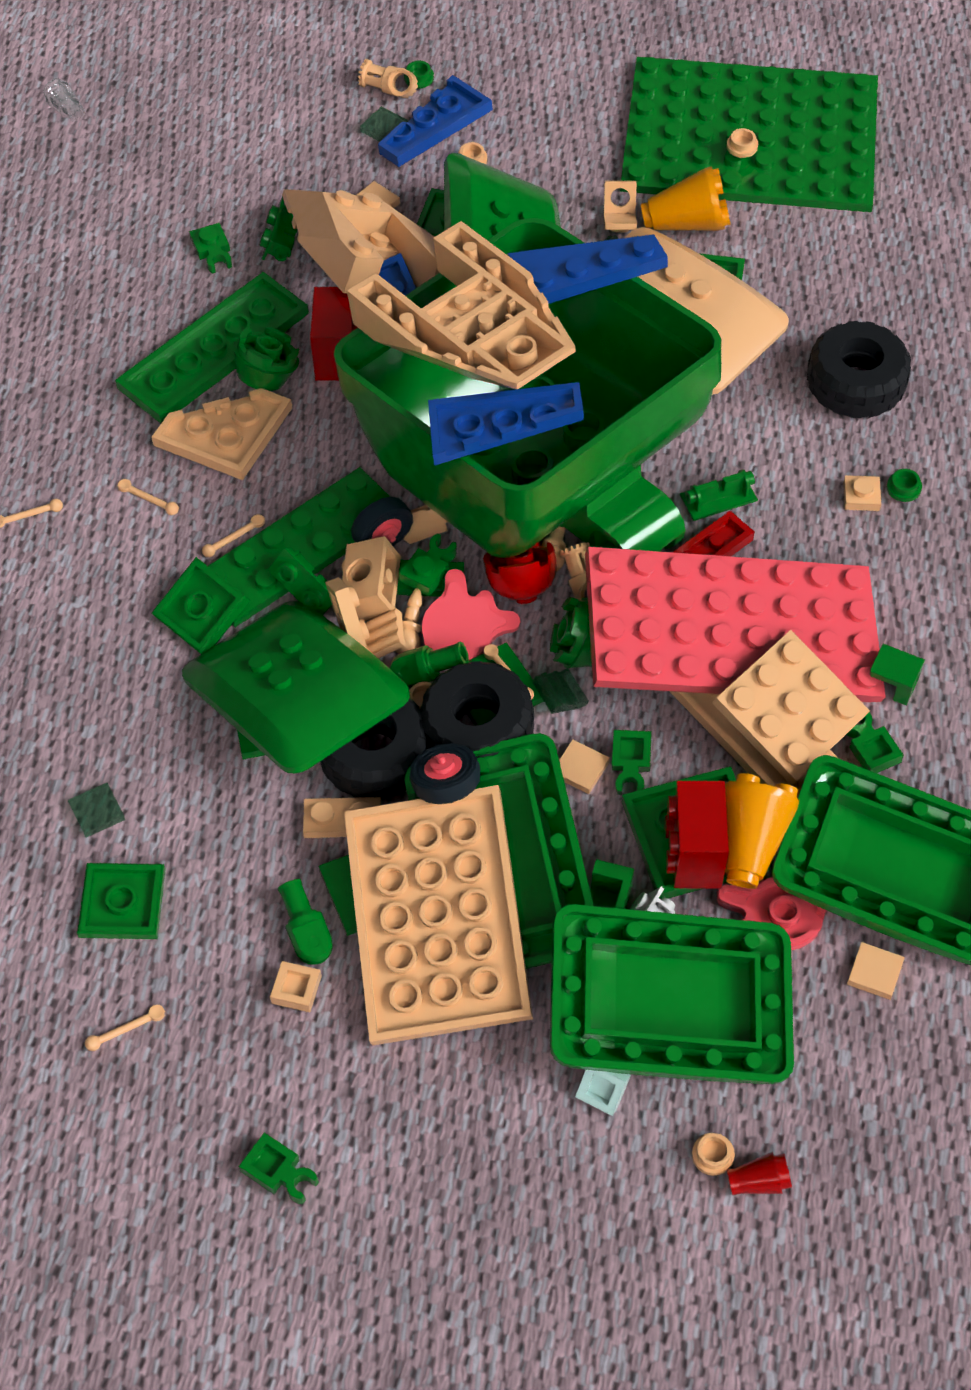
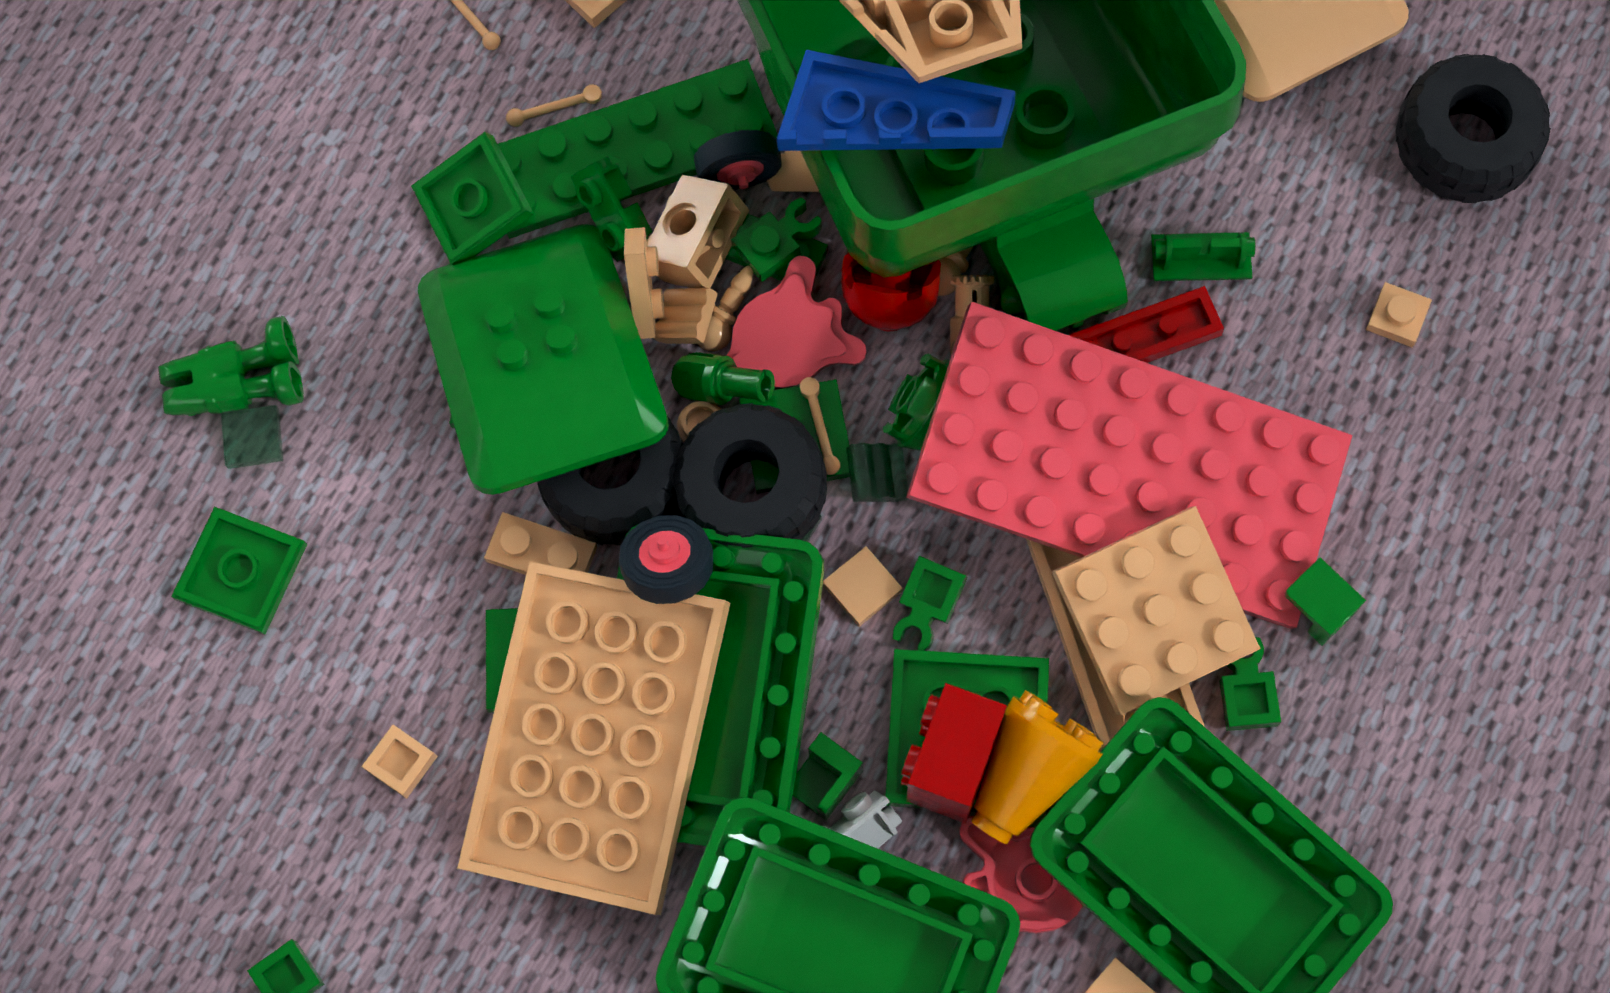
camera: 25 degrees right, 15 degrees up
(56, 776) = (216, 375): none -> green piece
(155, 1013) = (228, 732): light nougat hinge -> none
(306, 926) = (440, 689): green arm -> none
(904, 485) = (1460, 324): green plate -> none

